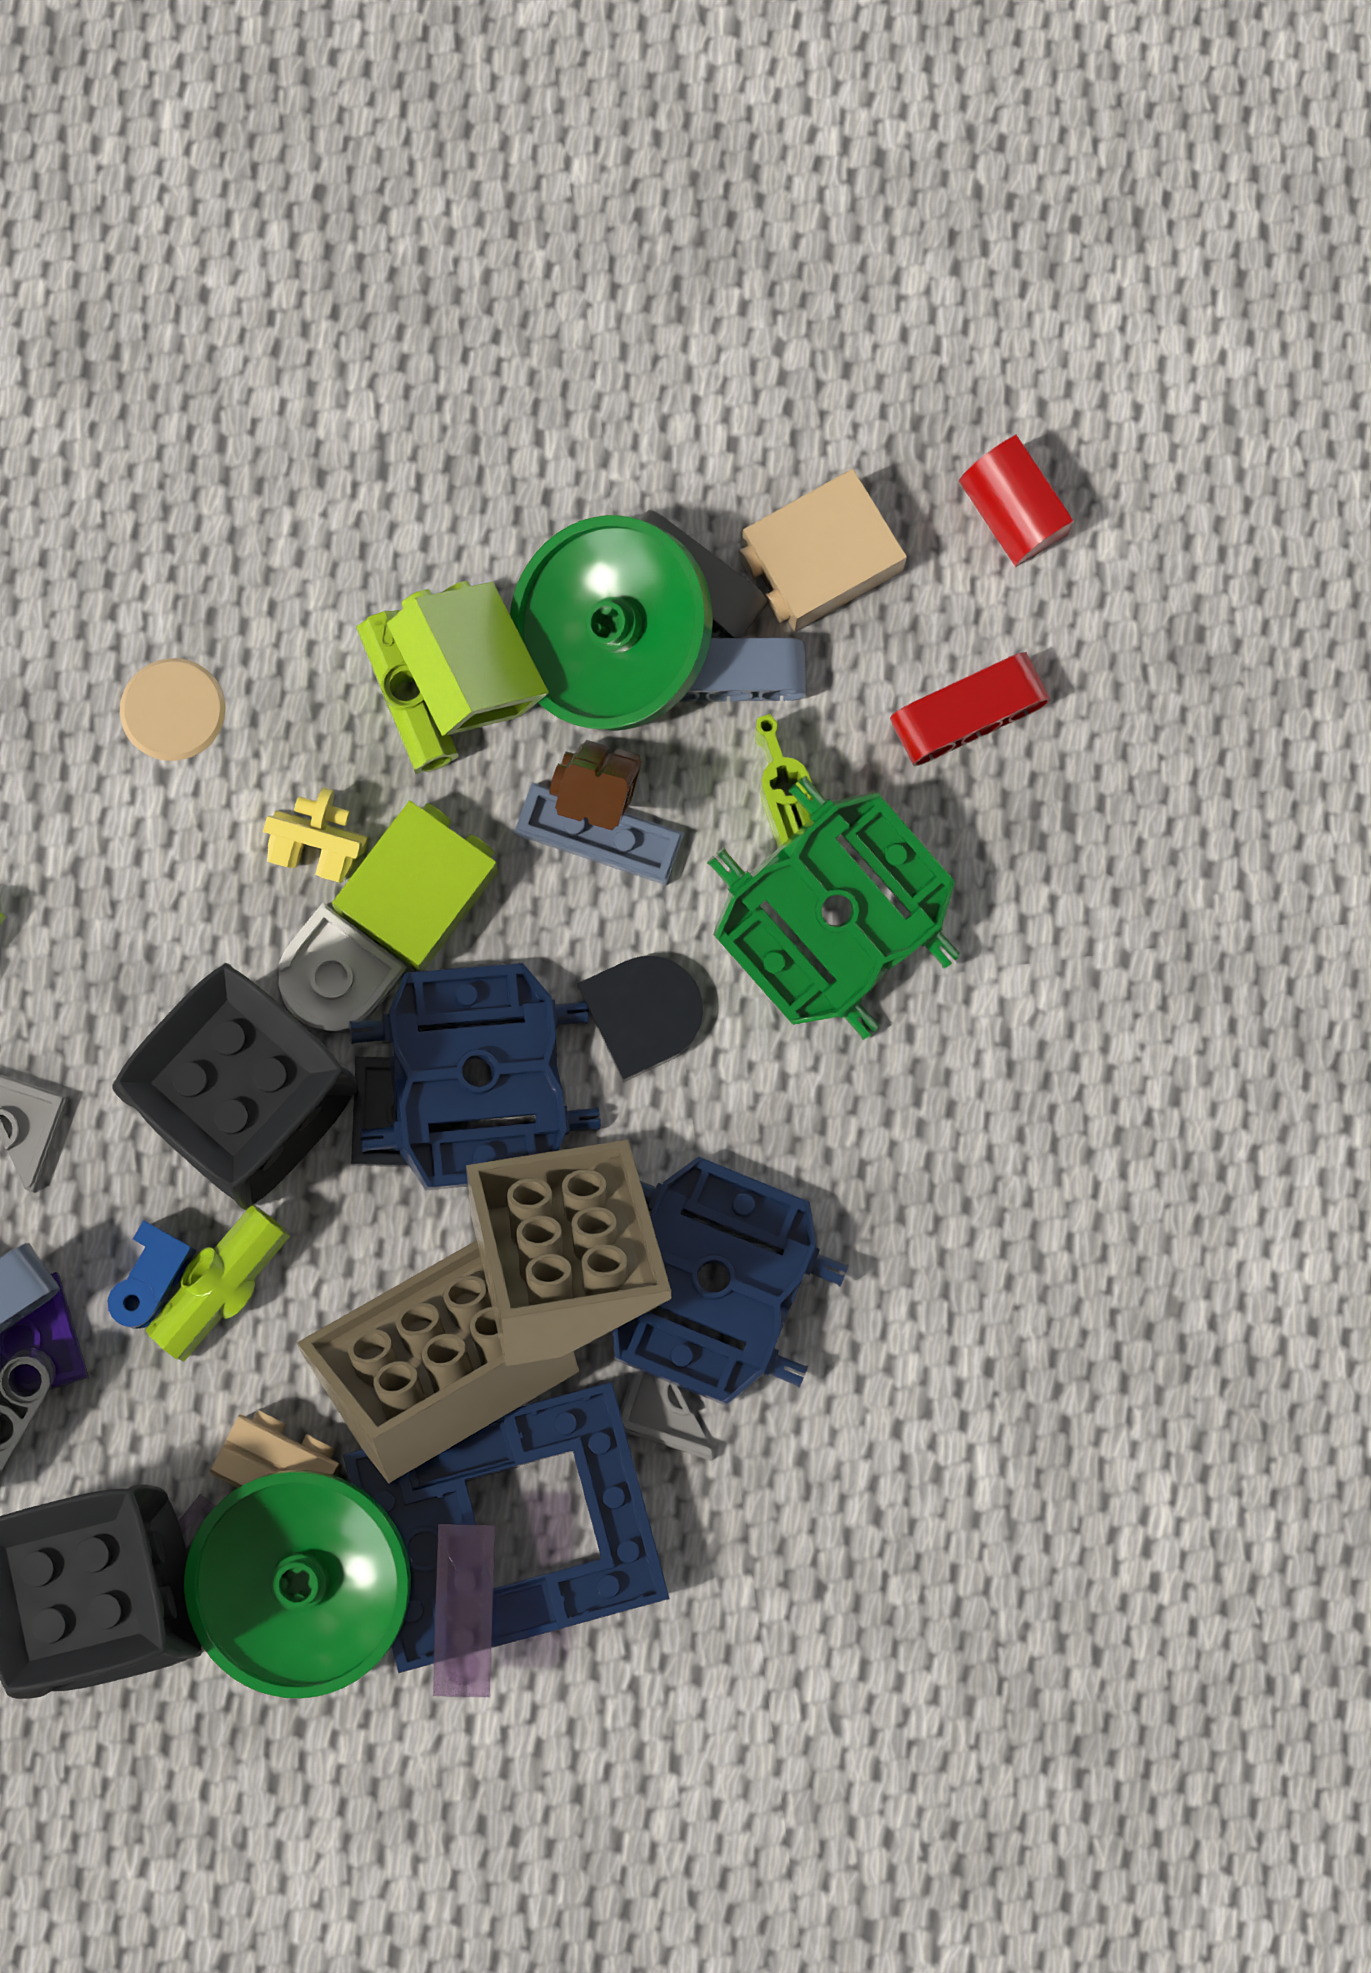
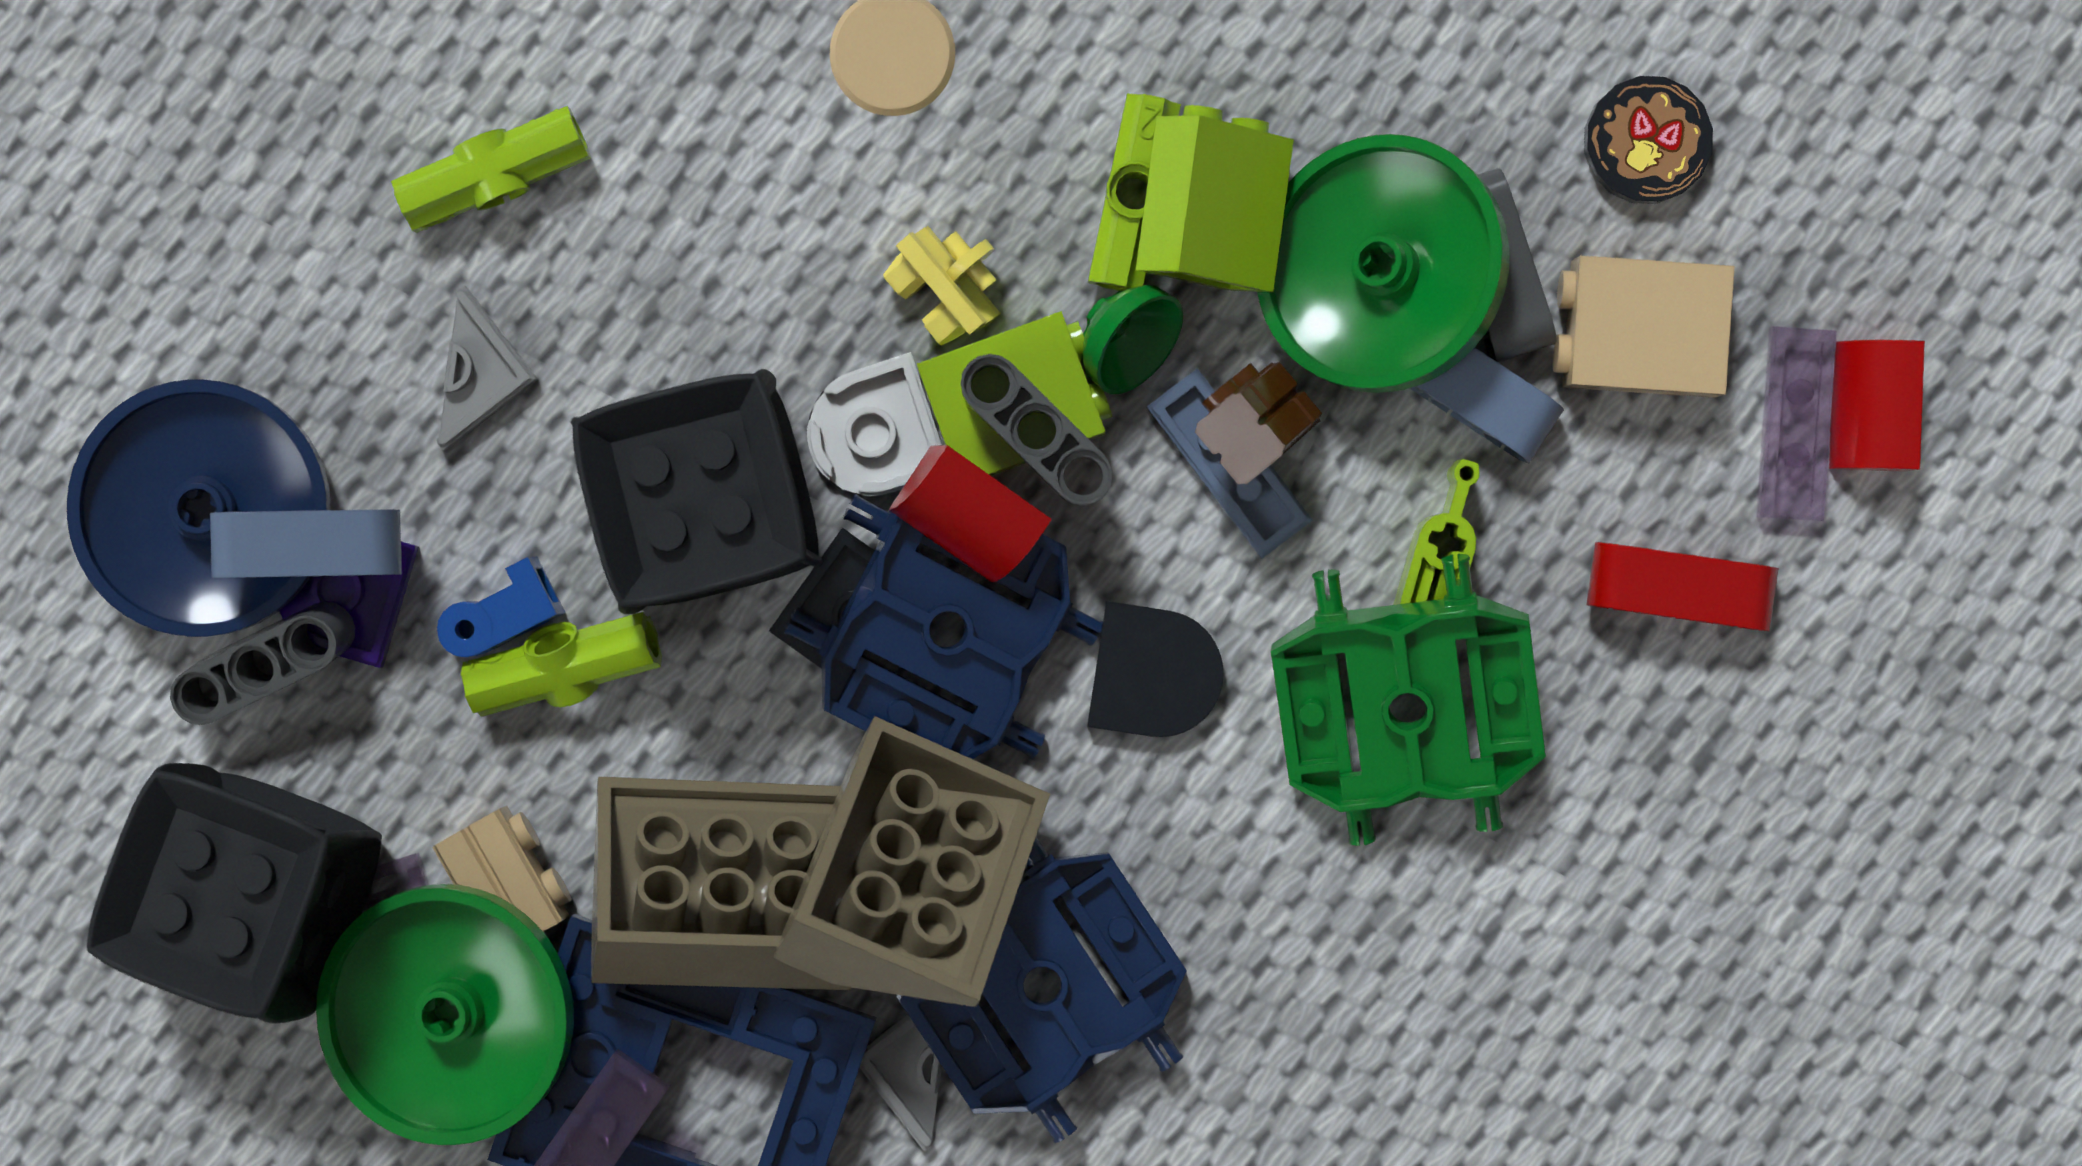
camera: 40 degrees right, 10 degrees up
(426, 870) = (1026, 399): none -> dark grey beam
(438, 976) = (969, 513): none -> red brick
(470, 787) = (1130, 337): none -> green piece
(737, 428) = (1648, 139): none -> tile
(971, 551) = (1796, 423): none -> clear purple tile

